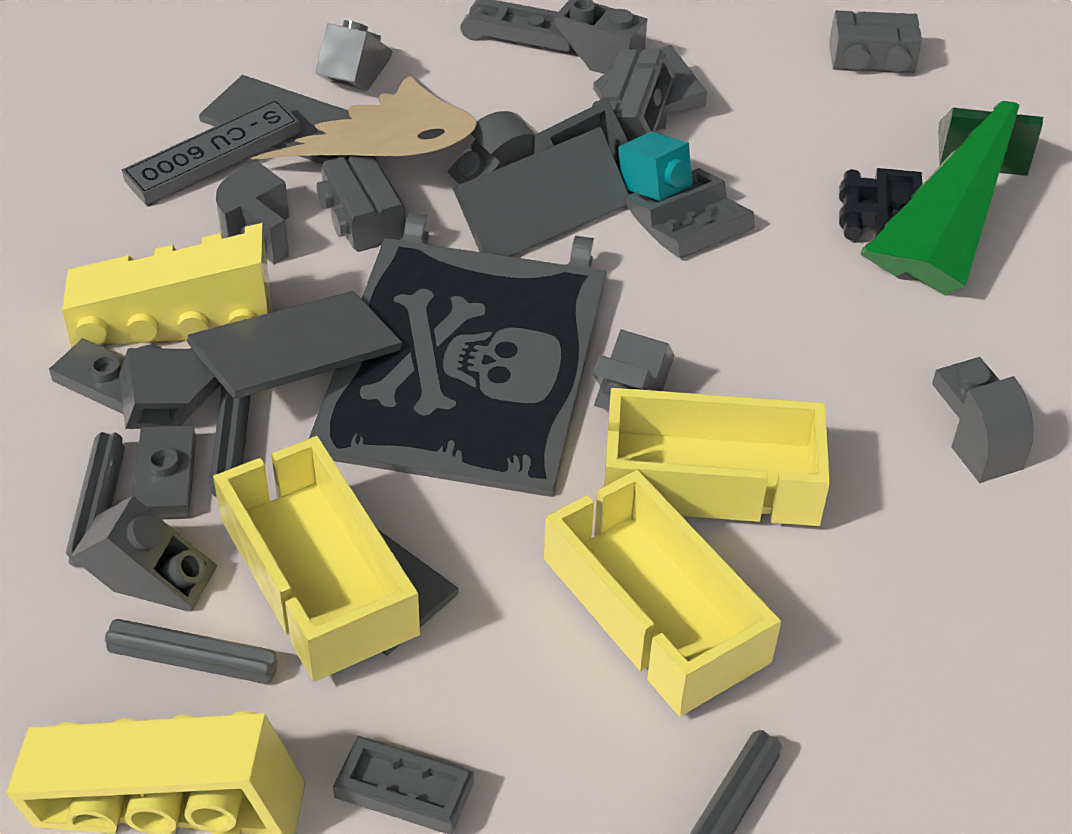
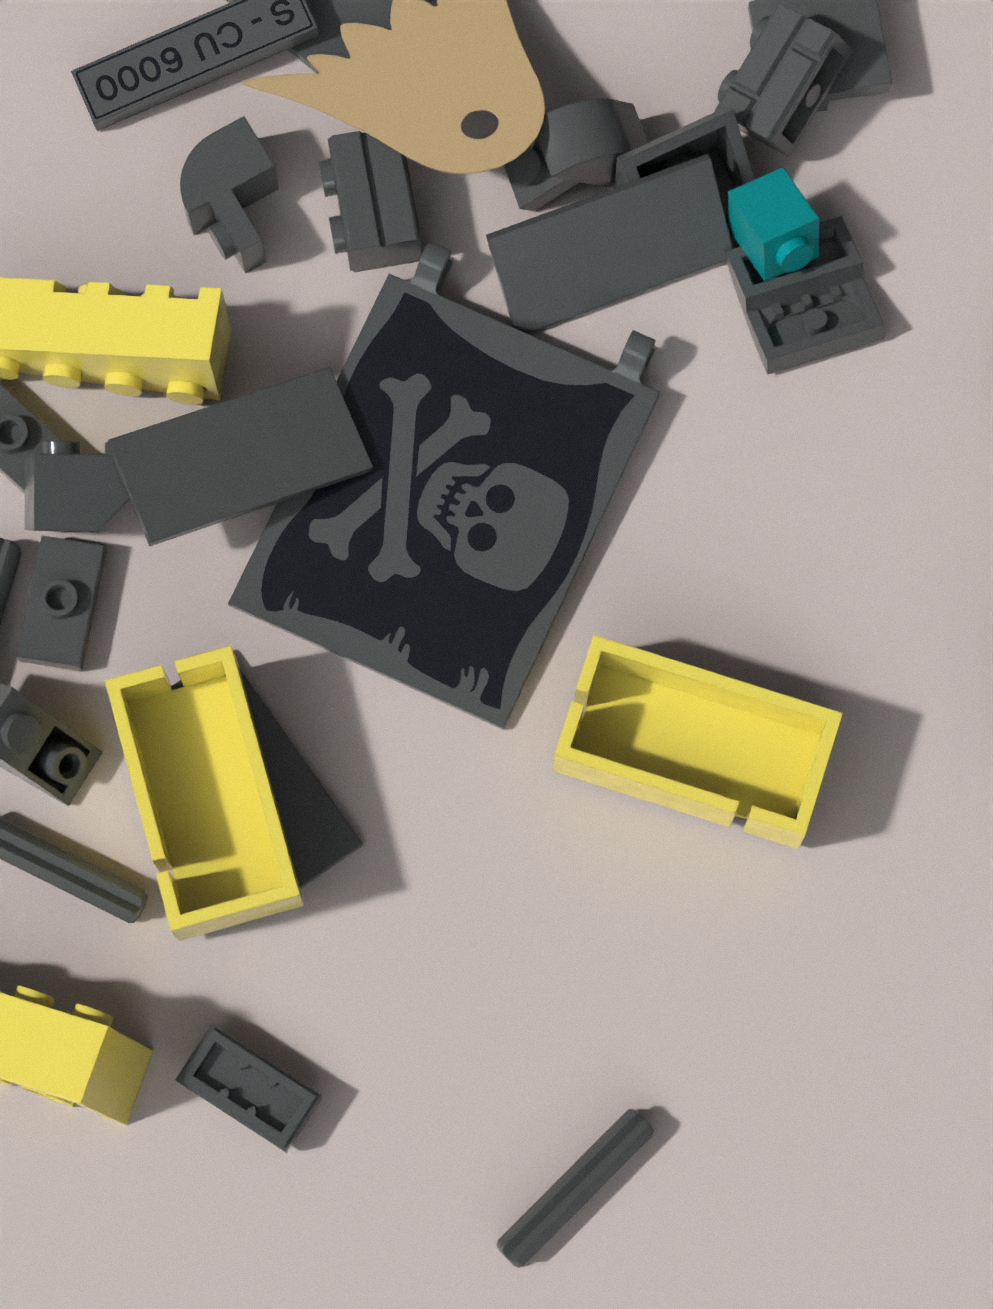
camera: 15 degrees right, 30 degrees up
(229, 435) = (138, 593): dark grey axle -> none
(634, 364) = (640, 586): dark grey brick -> none
(660, 592) = (574, 918): light yellow piece -> none

